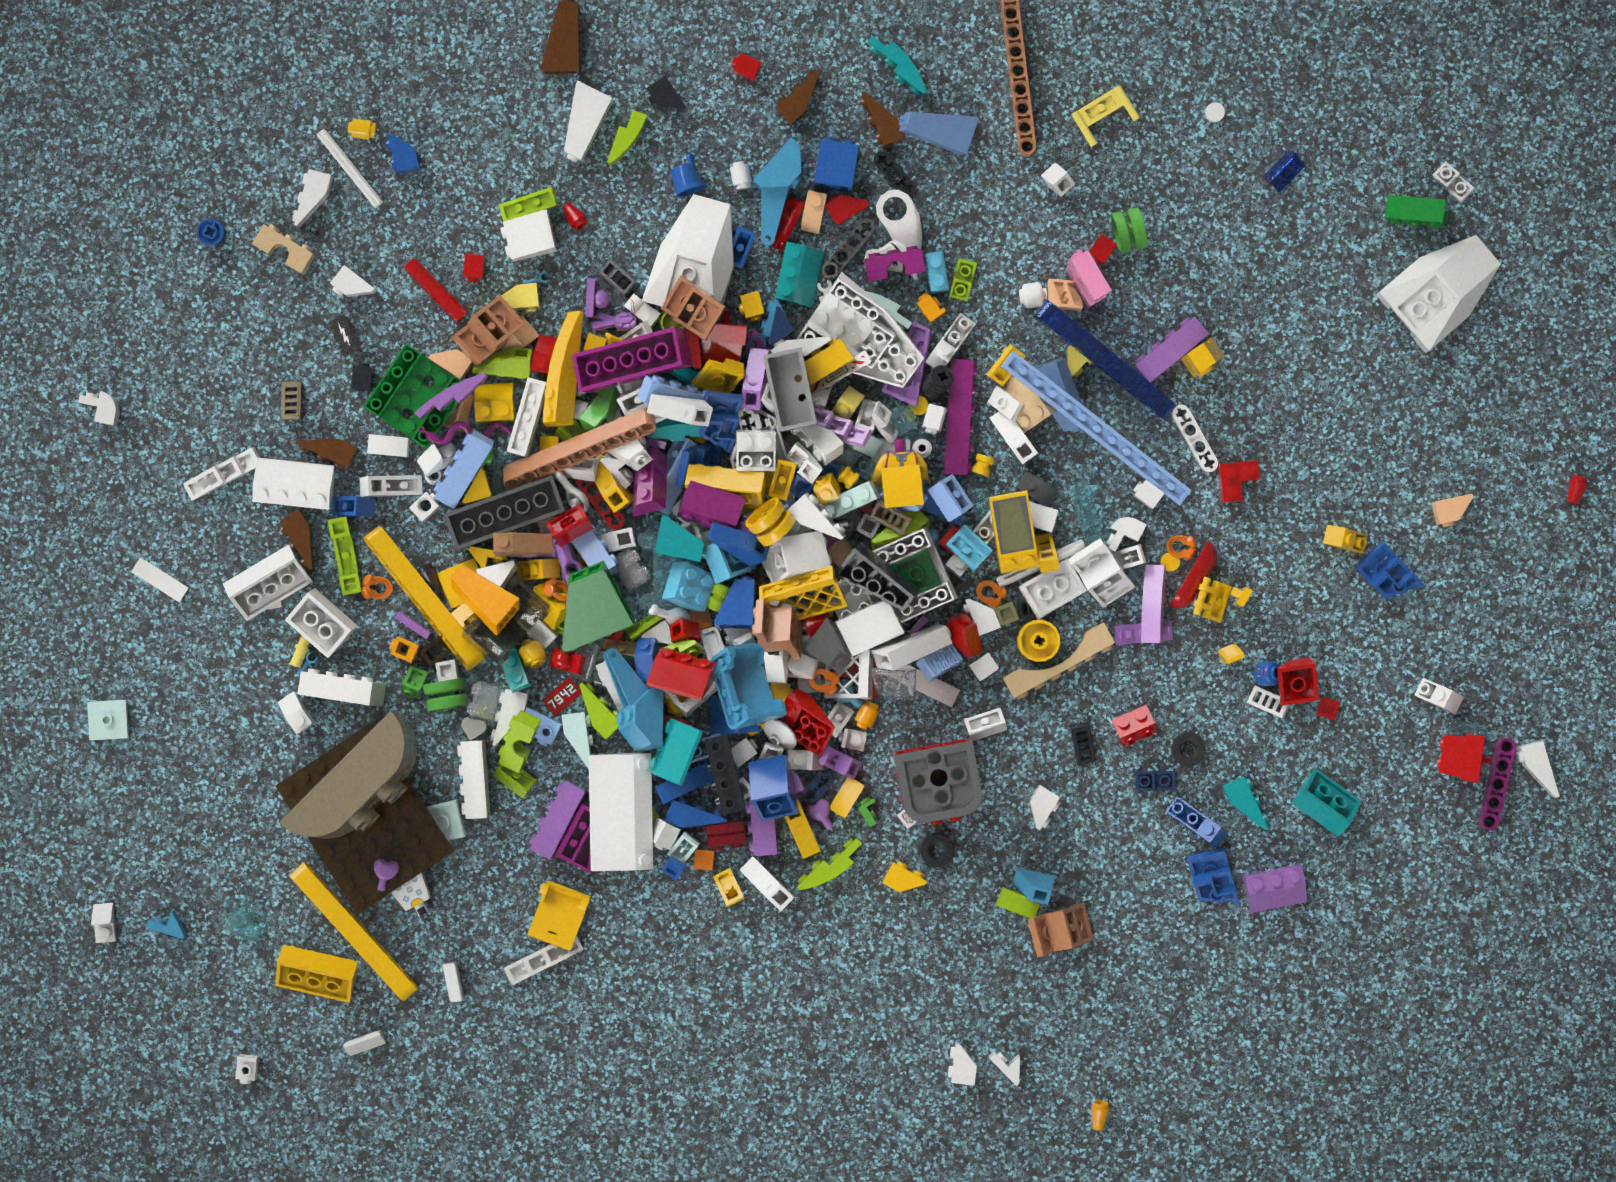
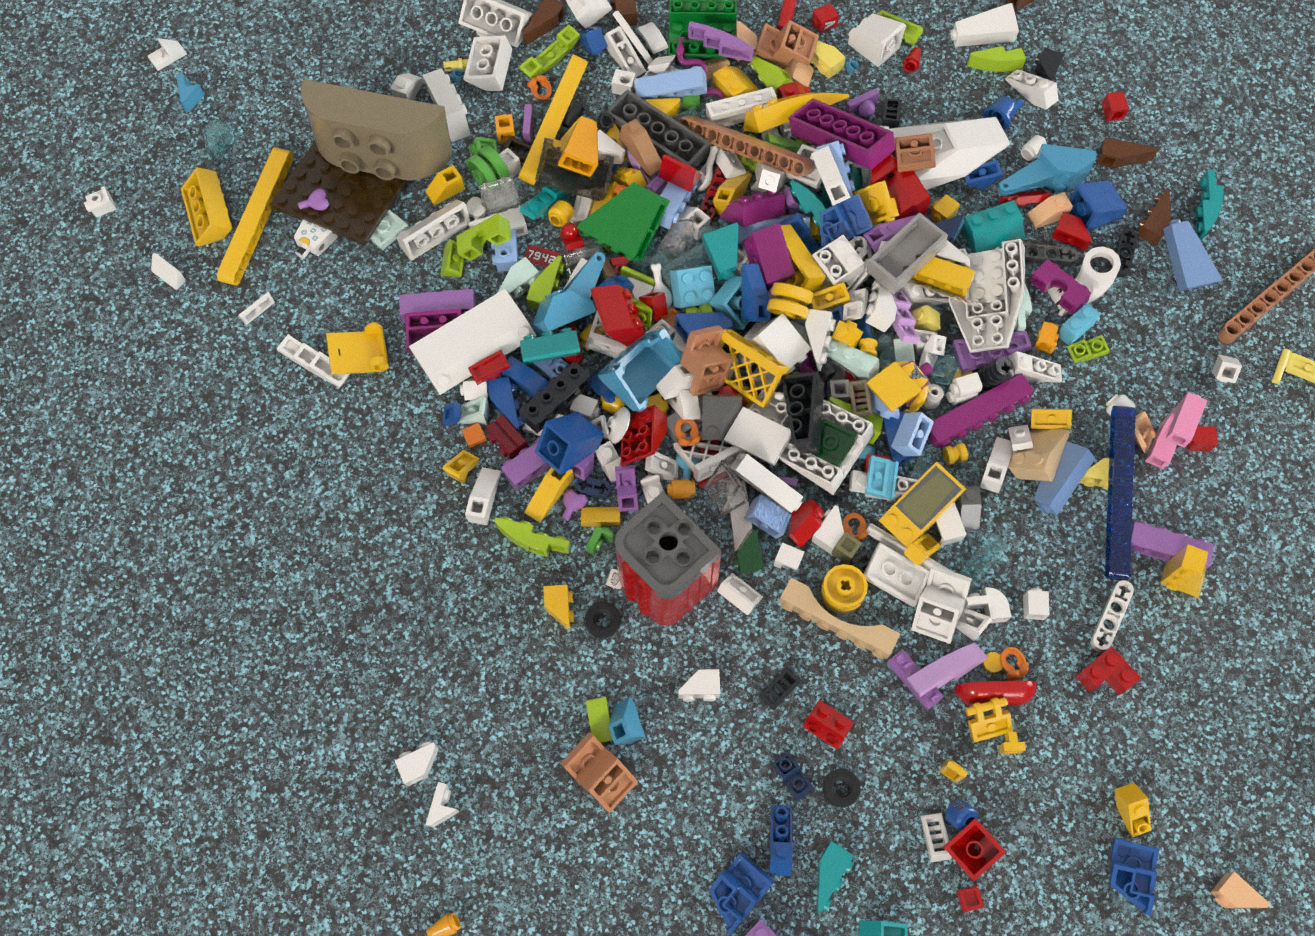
camera: 60 degrees right, 20 degrees down
(383, 468) = (633, 37): none -> white tile
(435, 743) = (445, 185): none -> yellow slope
(463, 557) = (607, 120): none -> black cone
(617, 469) = (749, 185): white slope -> none
(659, 814) = (489, 367): none -> red tile
(677, 127) = (1035, 89): none -> white slope
(960, 699) = (748, 554): none -> dark green slope
(1095, 427) = (1060, 519): light blue plate -> none
(1129, 230) = (1239, 448): bright green wheel -> none

